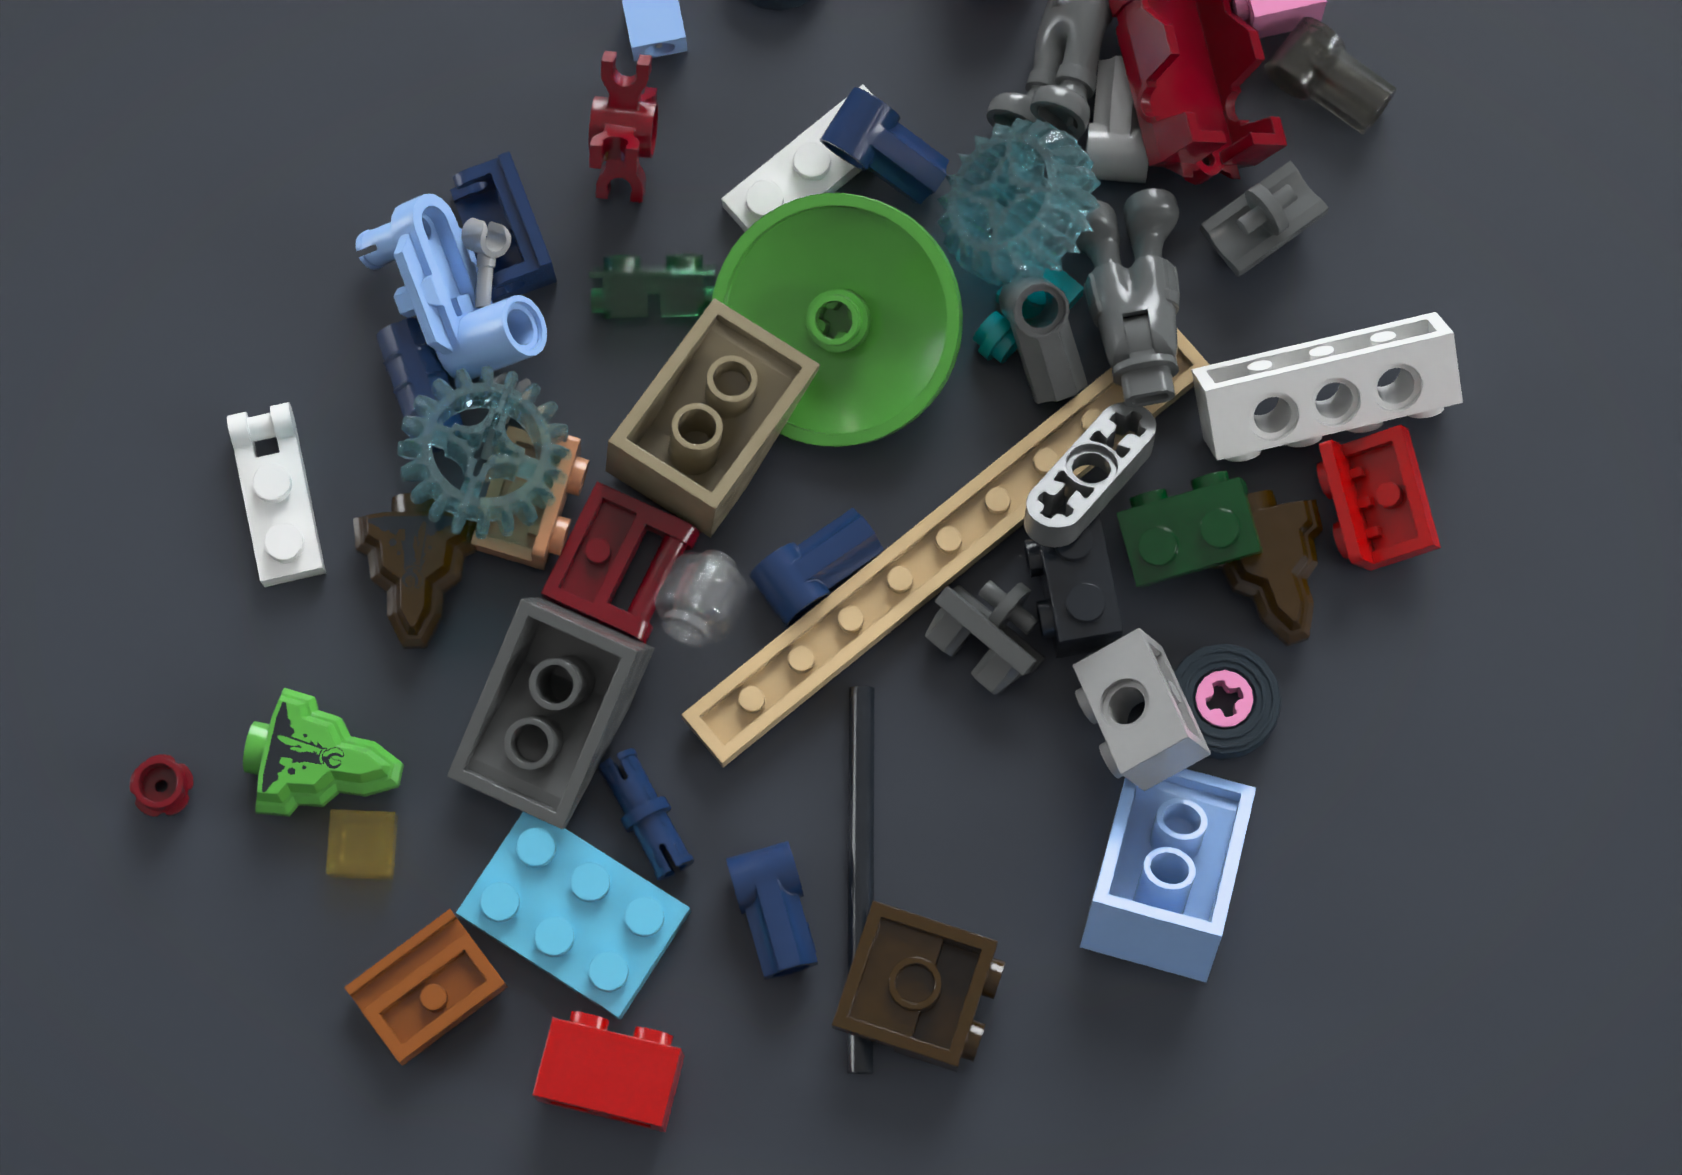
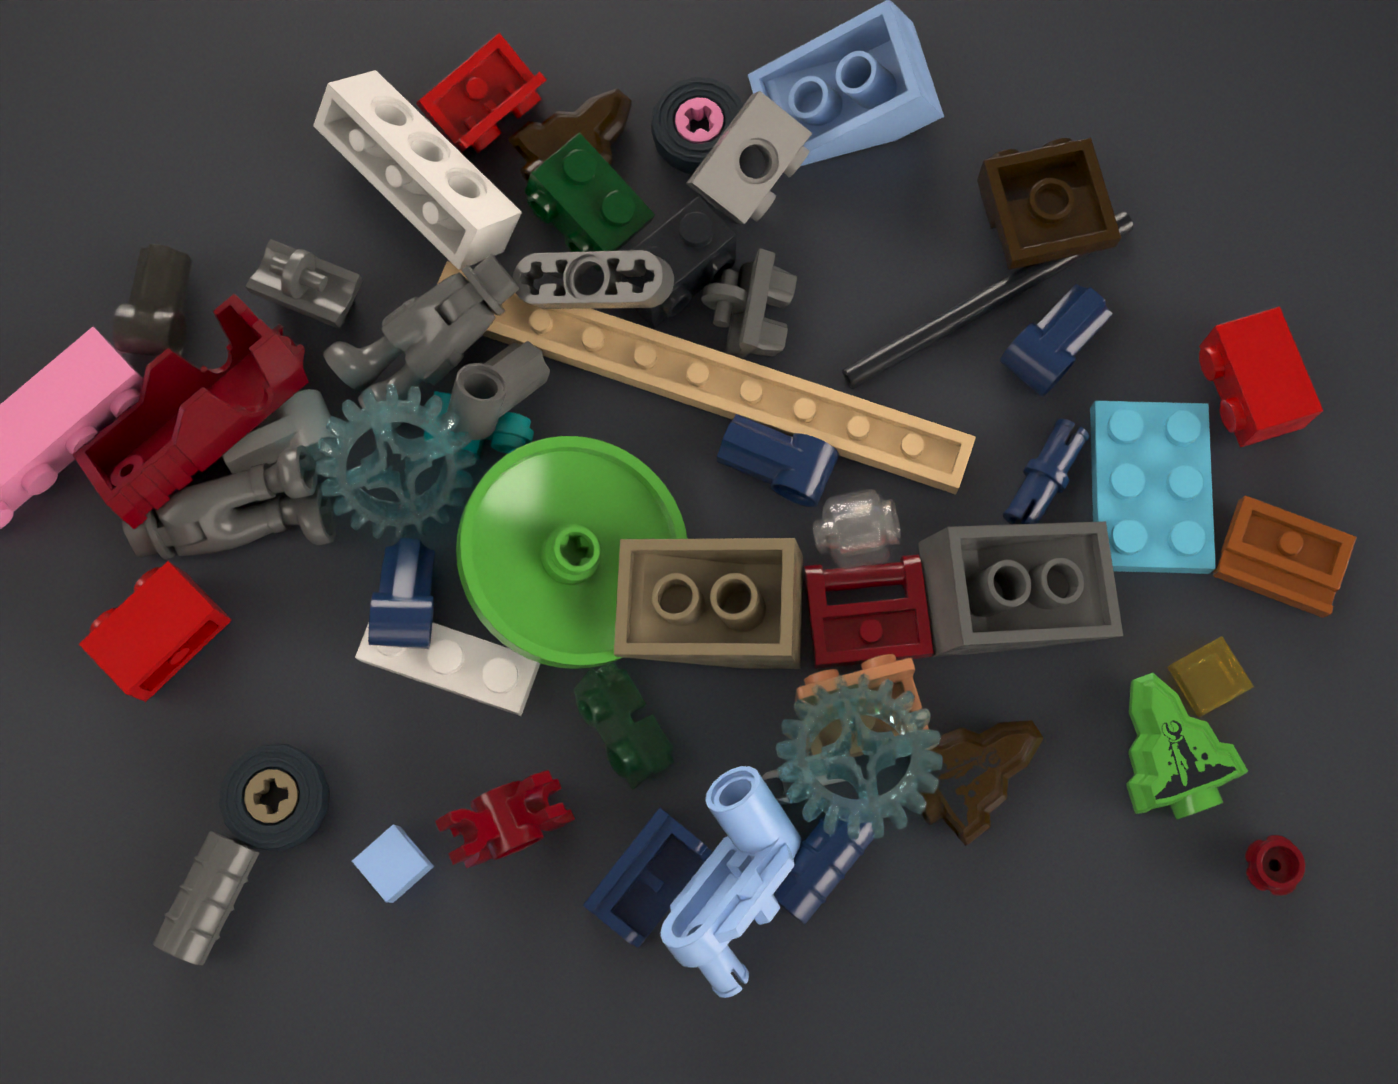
camera: 120 degrees left, 0 degrees up
(276, 497) = (984, 927): white plate -> none
(487, 250) = (672, 869): light grey hand -> none

